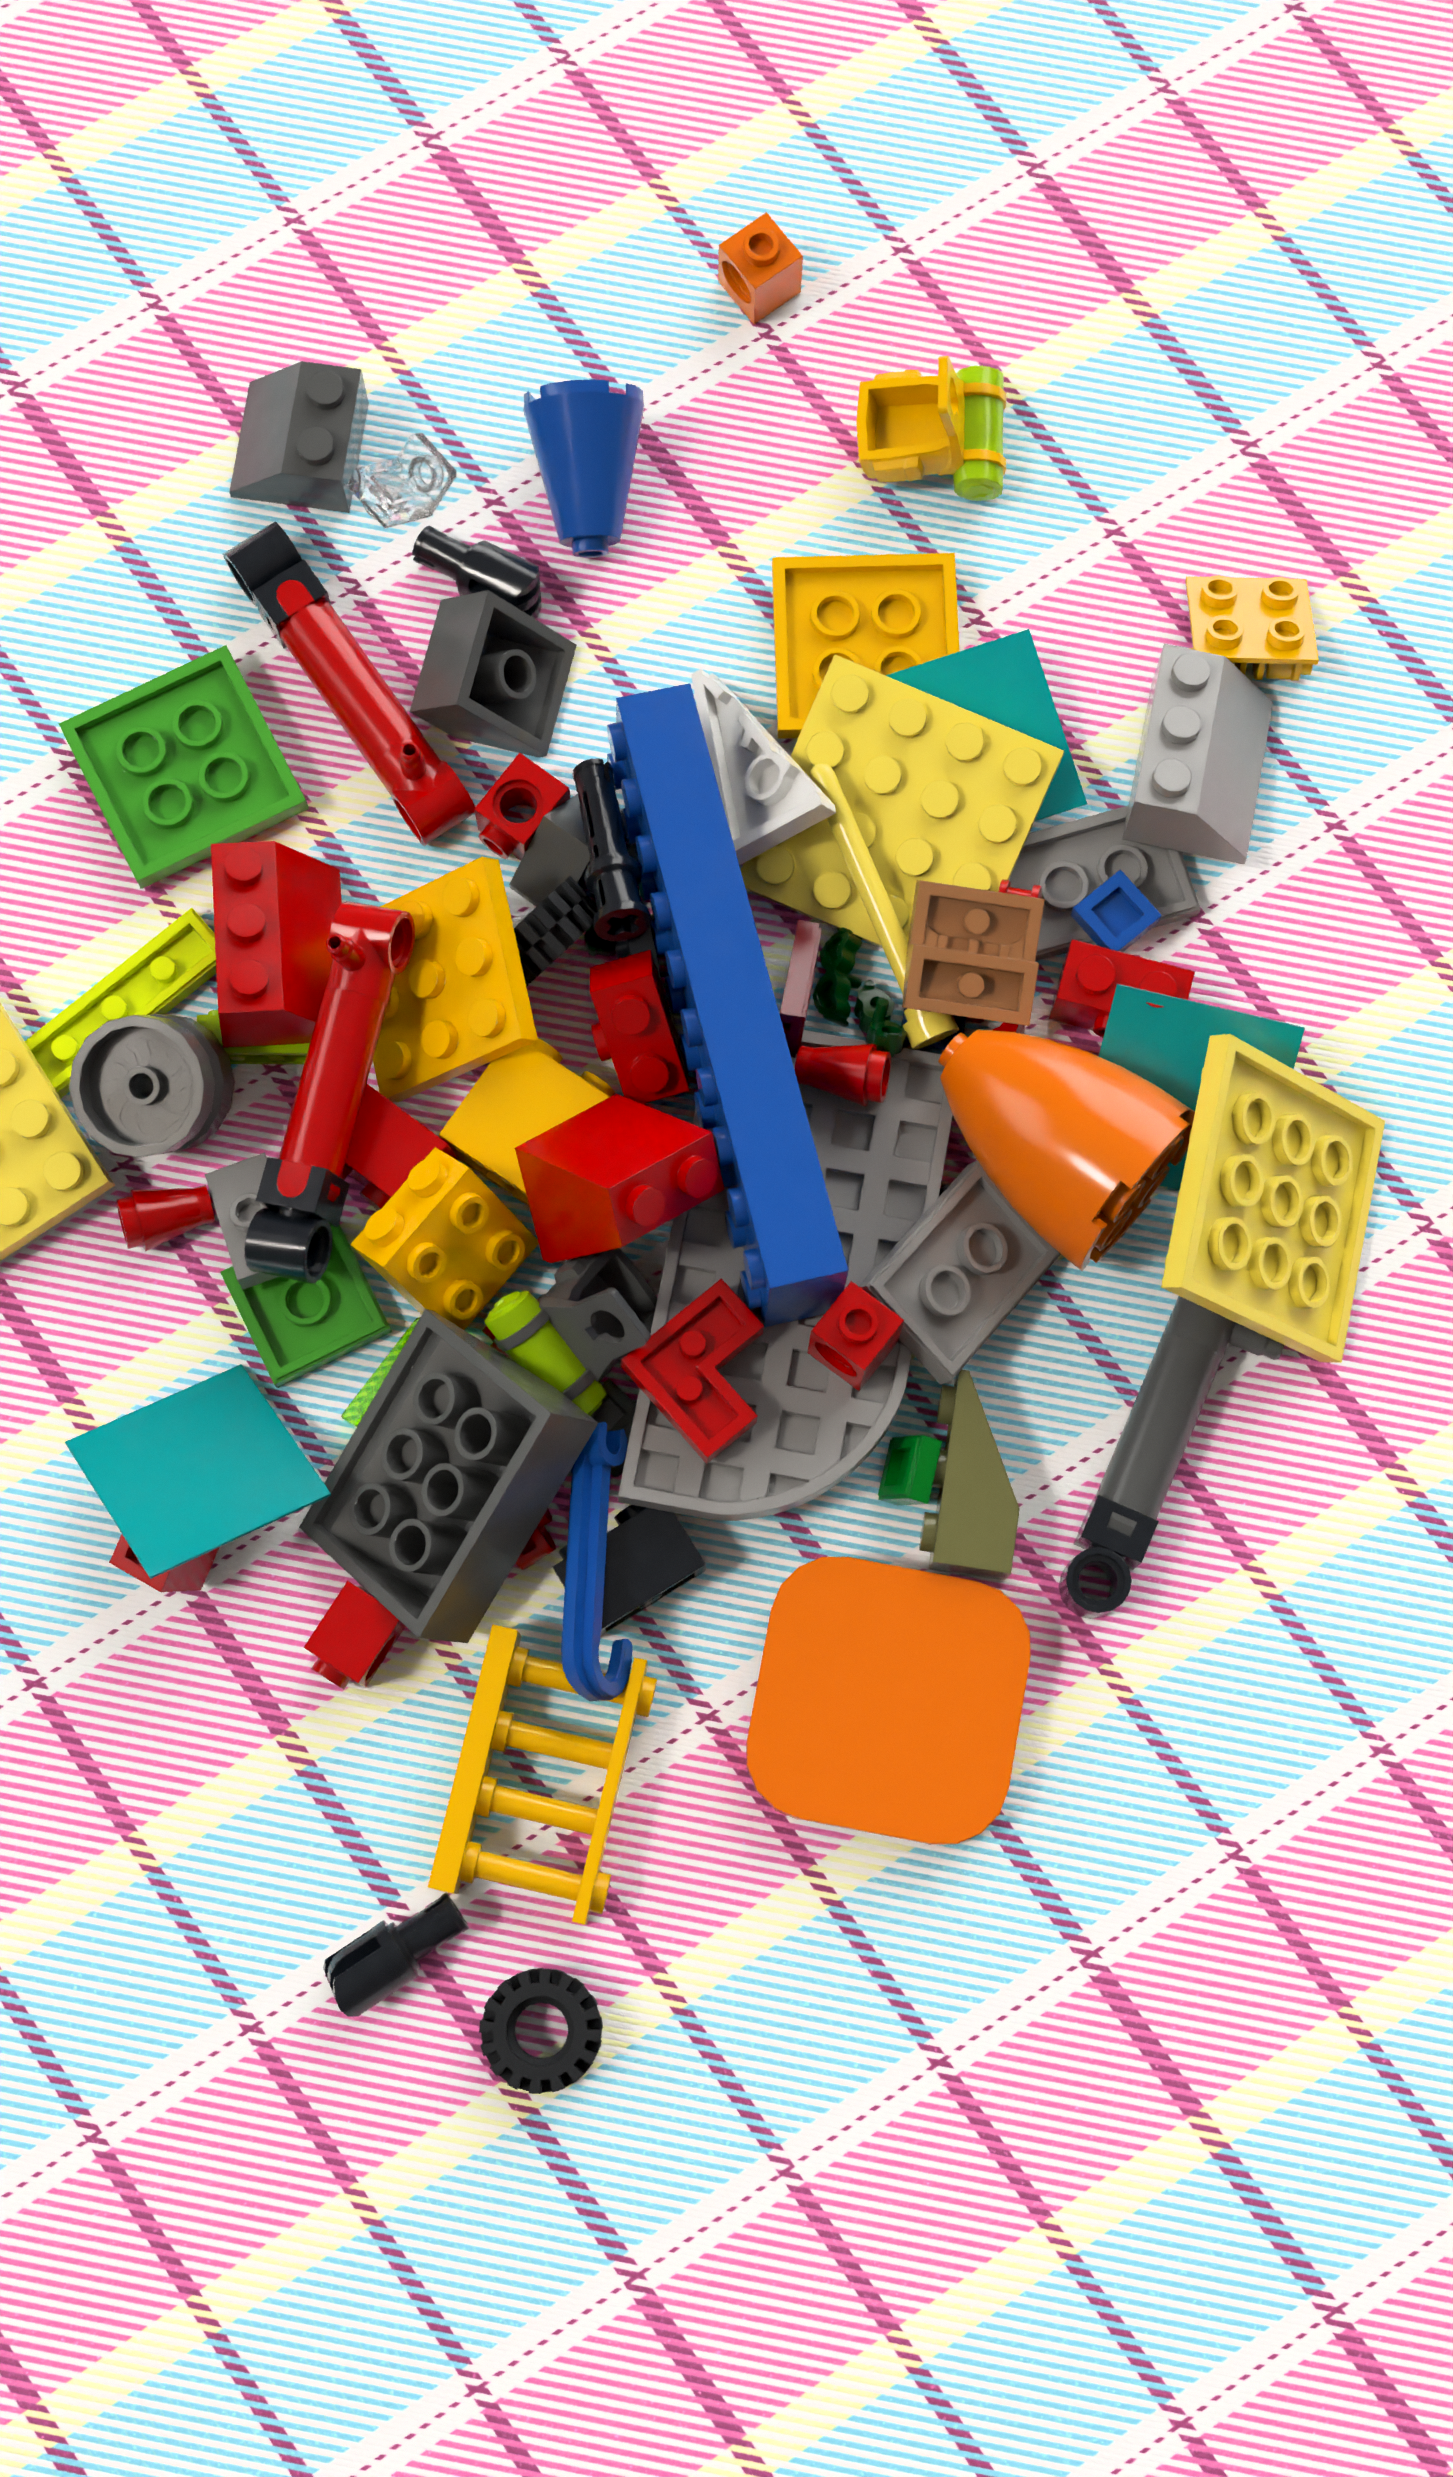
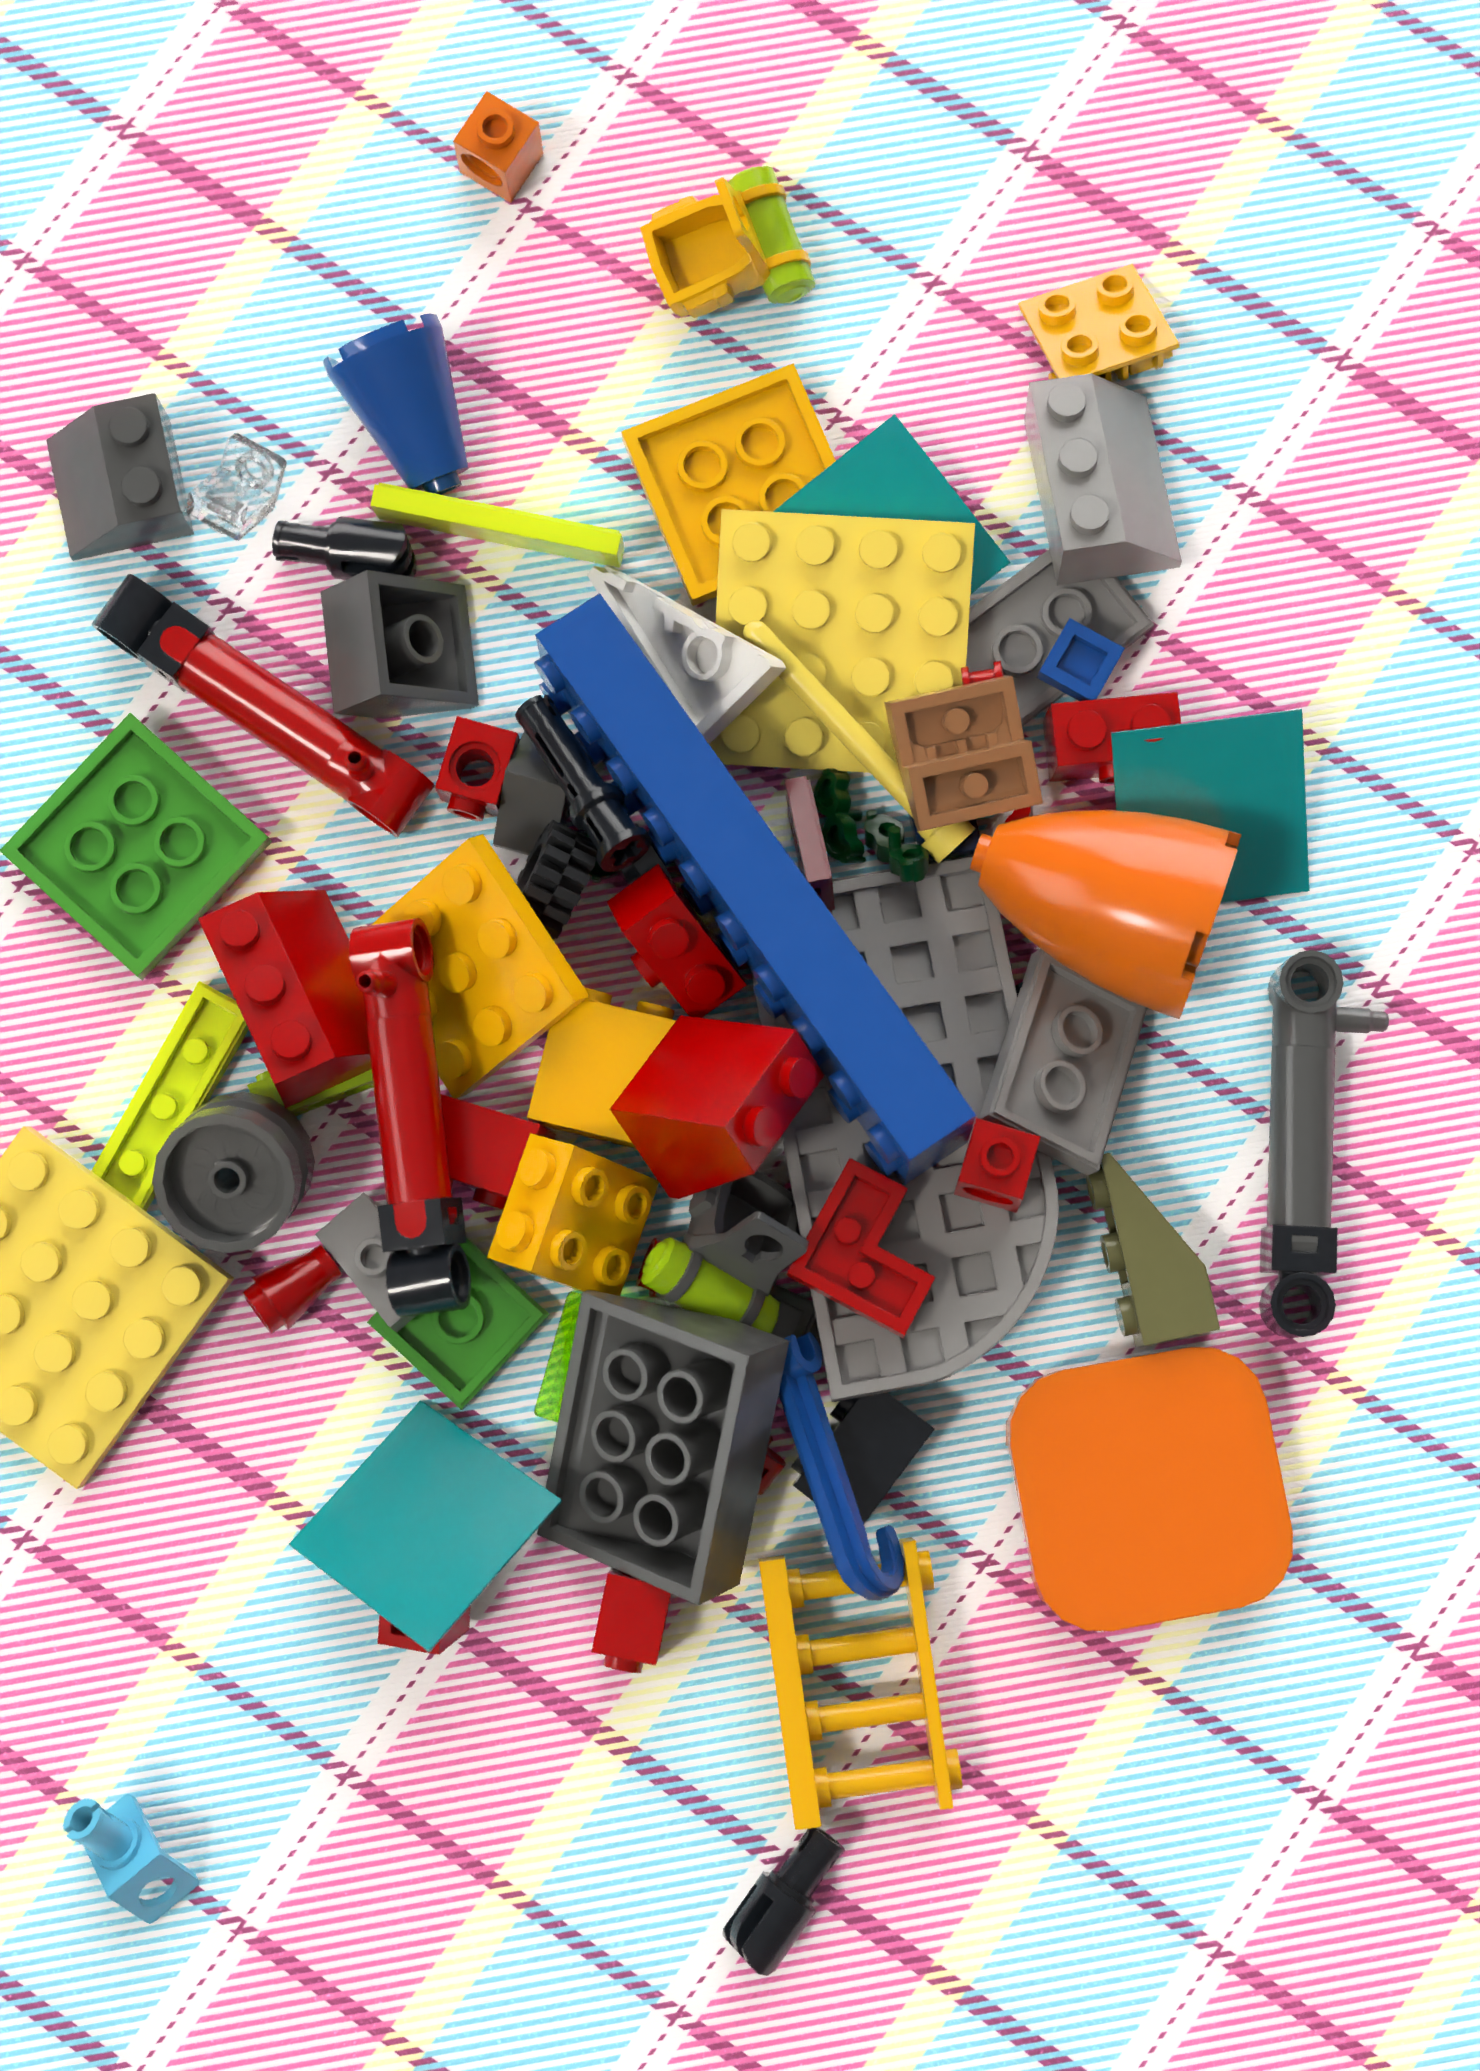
camera: 20 degrees left, 5 degrees up
(500, 2040) = (956, 1956): black tyre -> none
(627, 600) = (498, 524): none -> neon yellow tile
(847, 1071) = (886, 911): red cone -> none
(909, 1470) = (1087, 1264): green tile -> none
(1273, 1200) = (1333, 886): light yellow plate -> none

